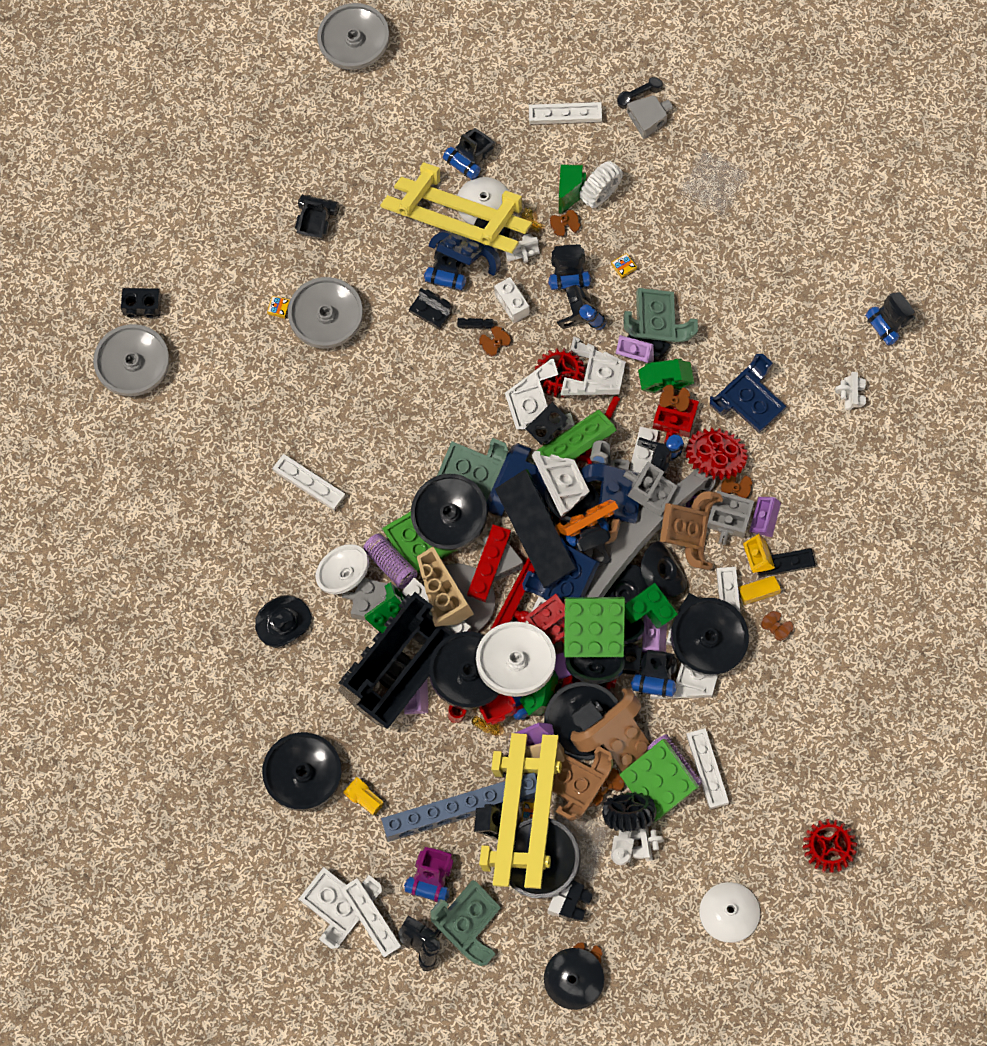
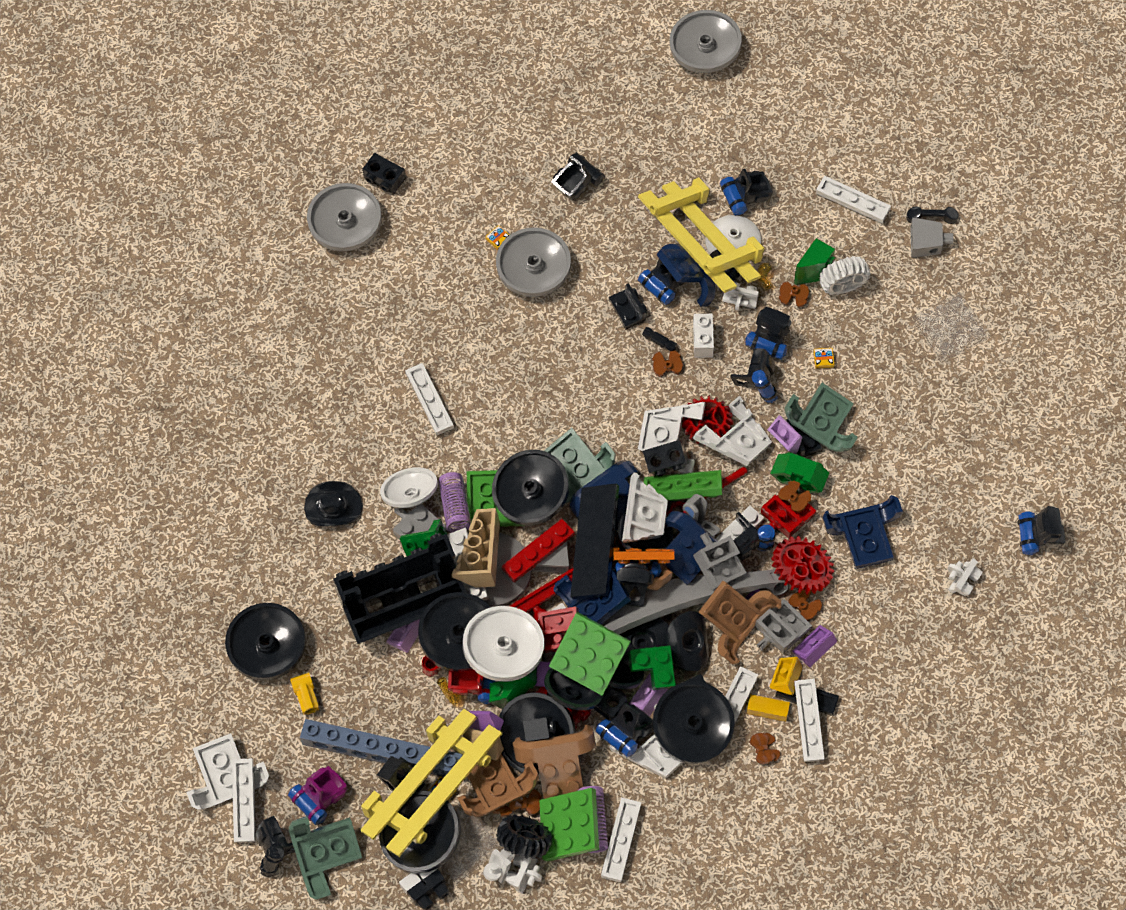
camera: 30 degrees right, 5 degrees down
(800, 581) = (809, 720): none -> white plate

